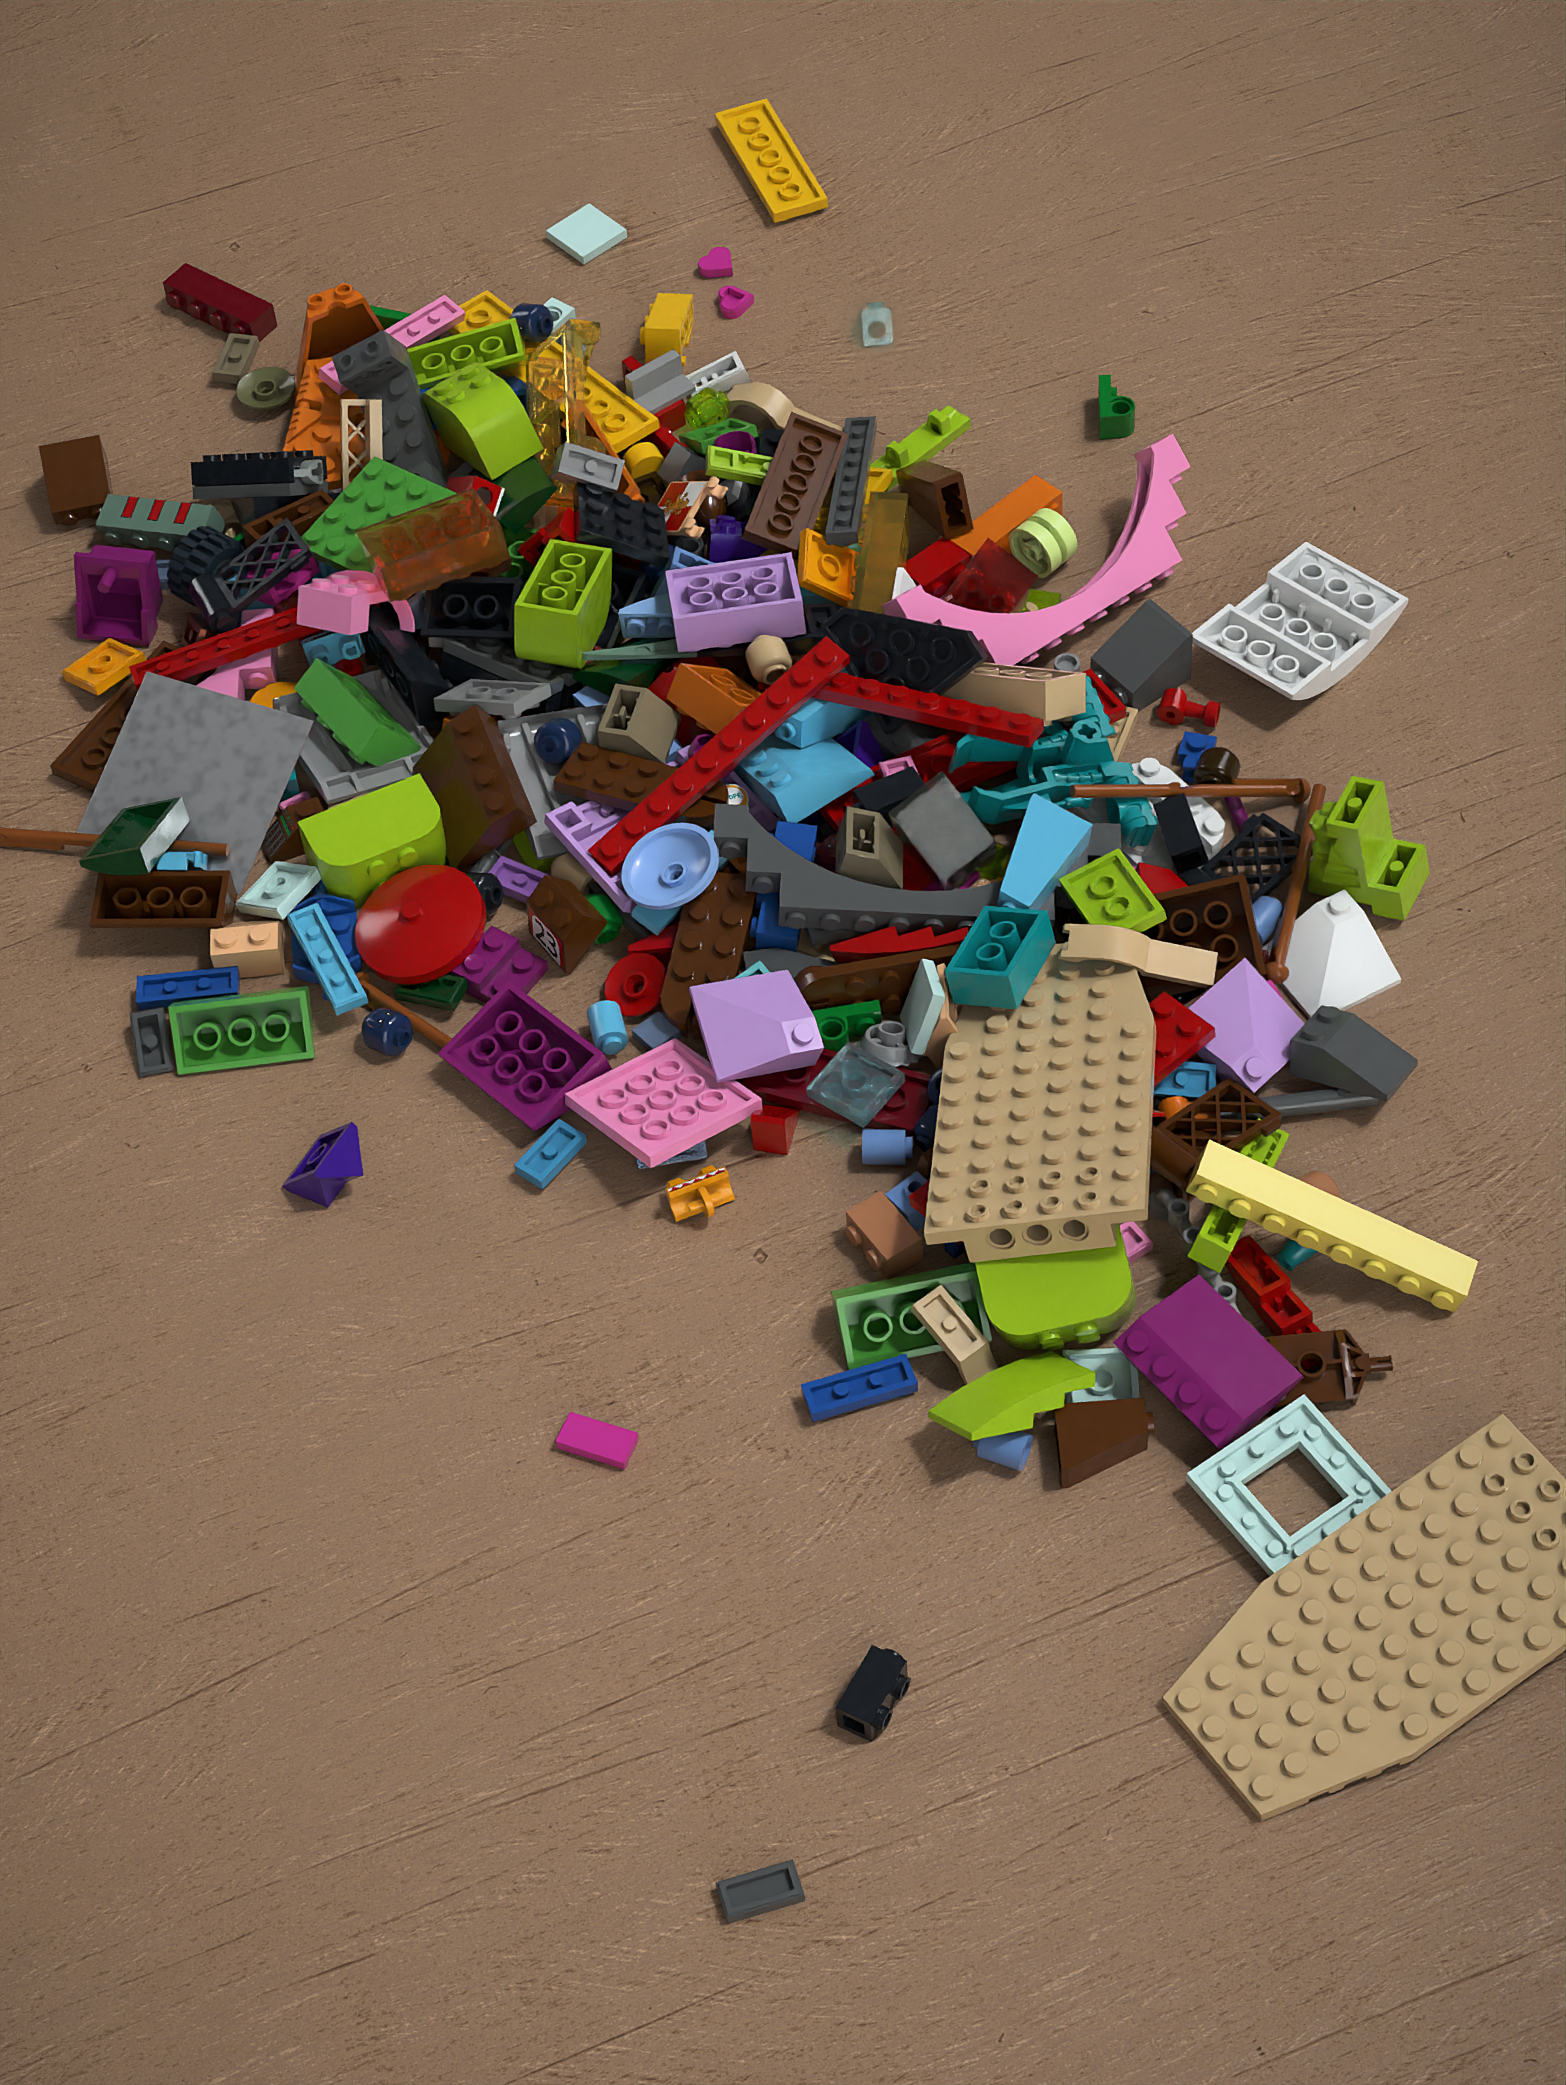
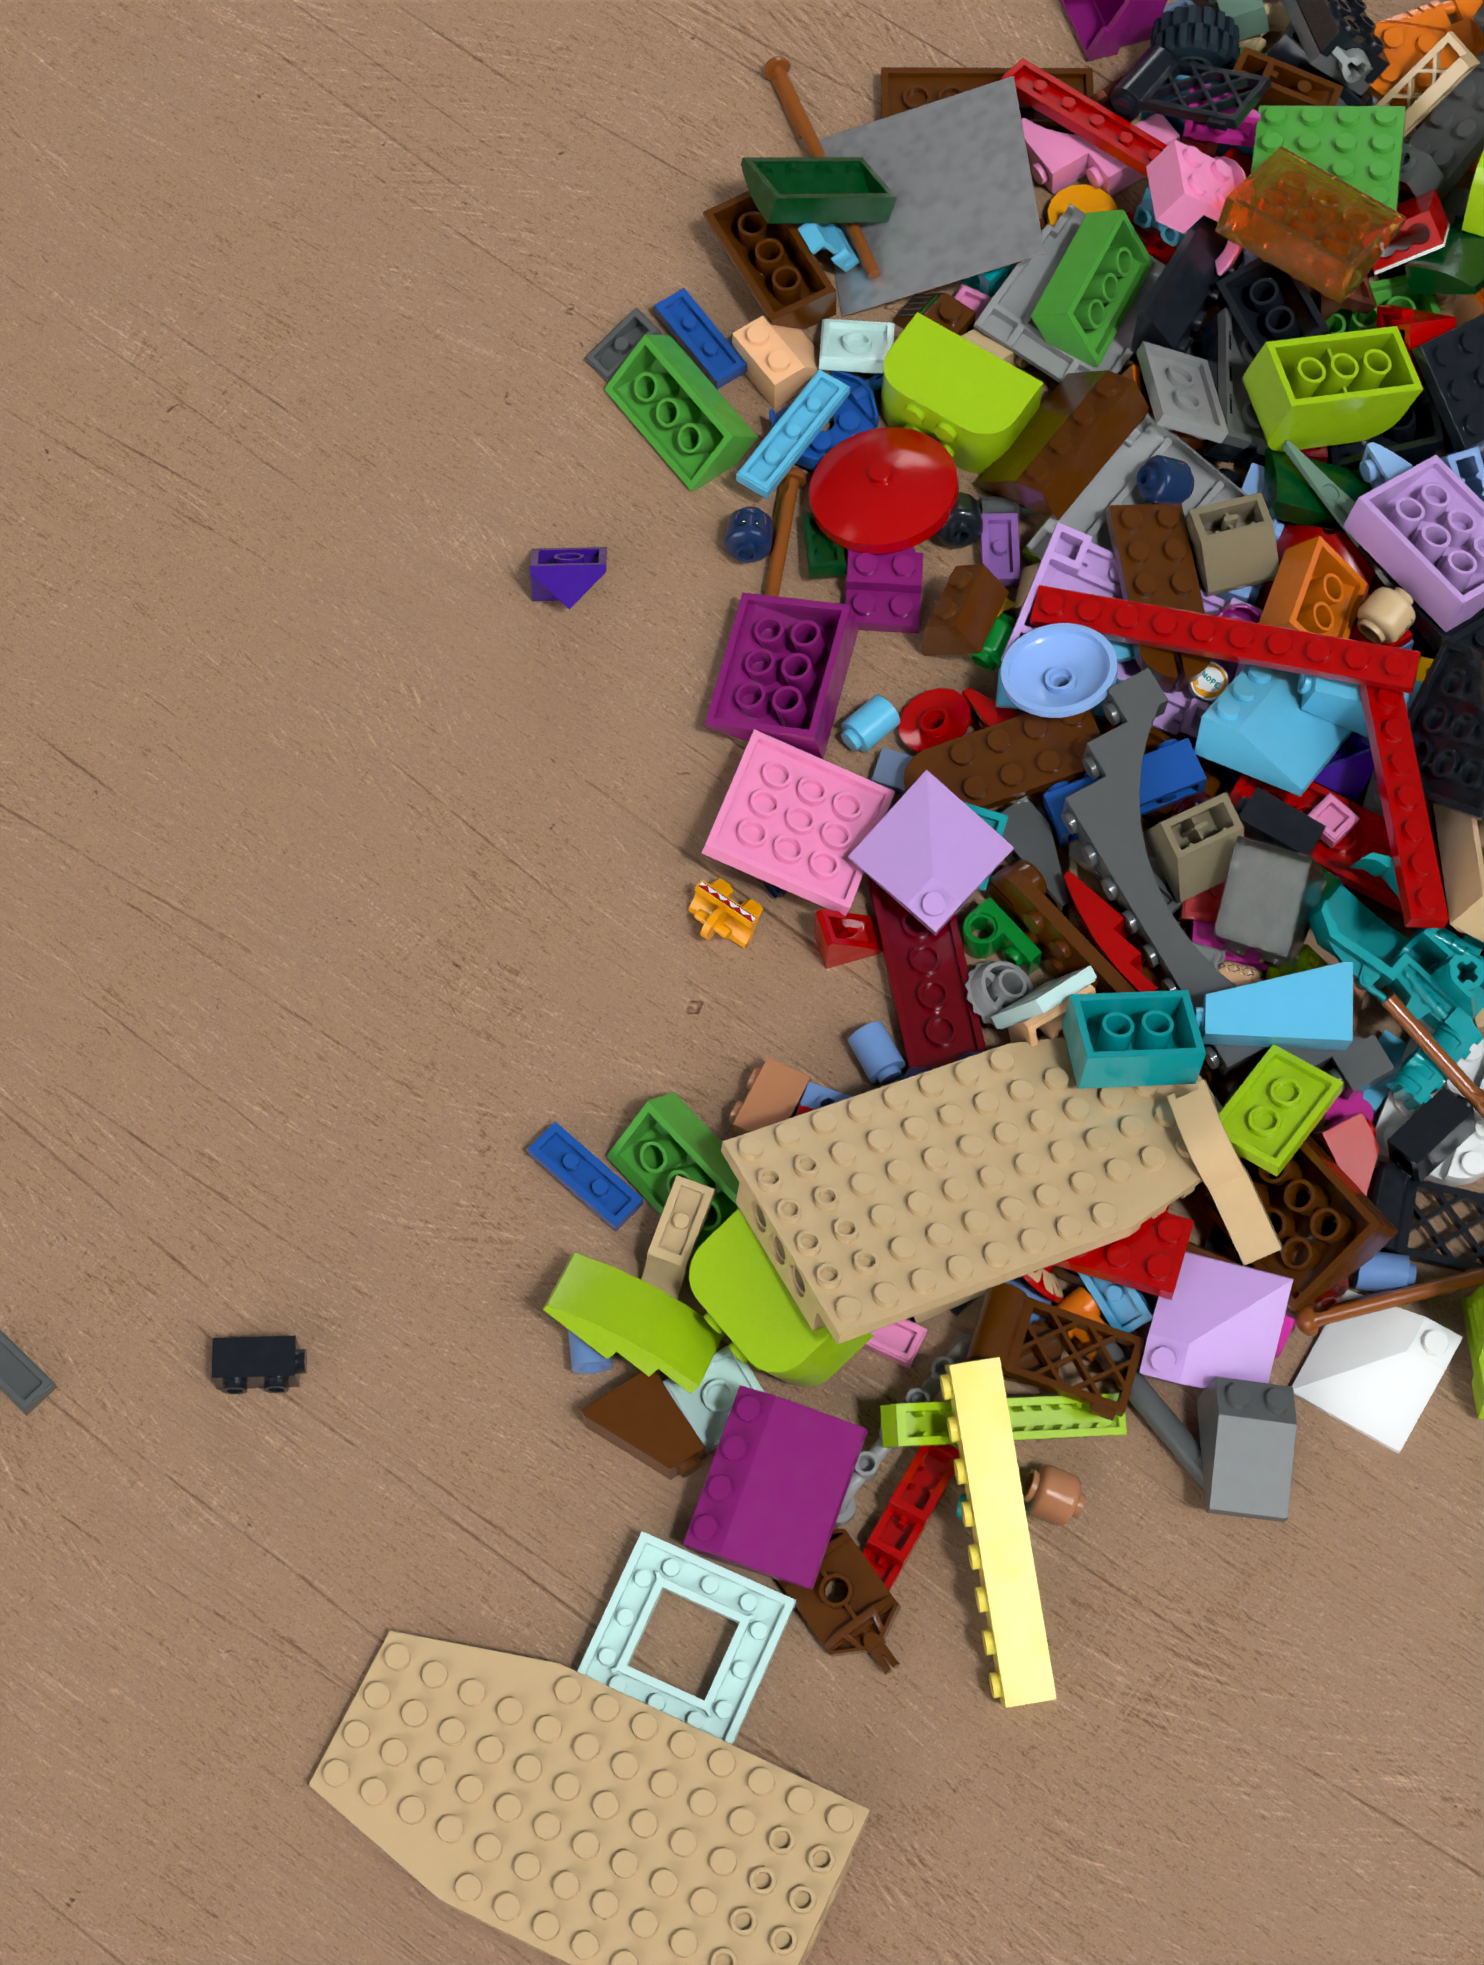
camera: 55 degrees right, 15 degrees up
(103, 666) = (1030, 37): light orange plate -> none
(550, 1154) = (695, 756): dark azure plate -> none
(597, 1440) = (404, 975): dark pink tile -> none
(855, 1084) = (924, 986): clear light blue plate -> none

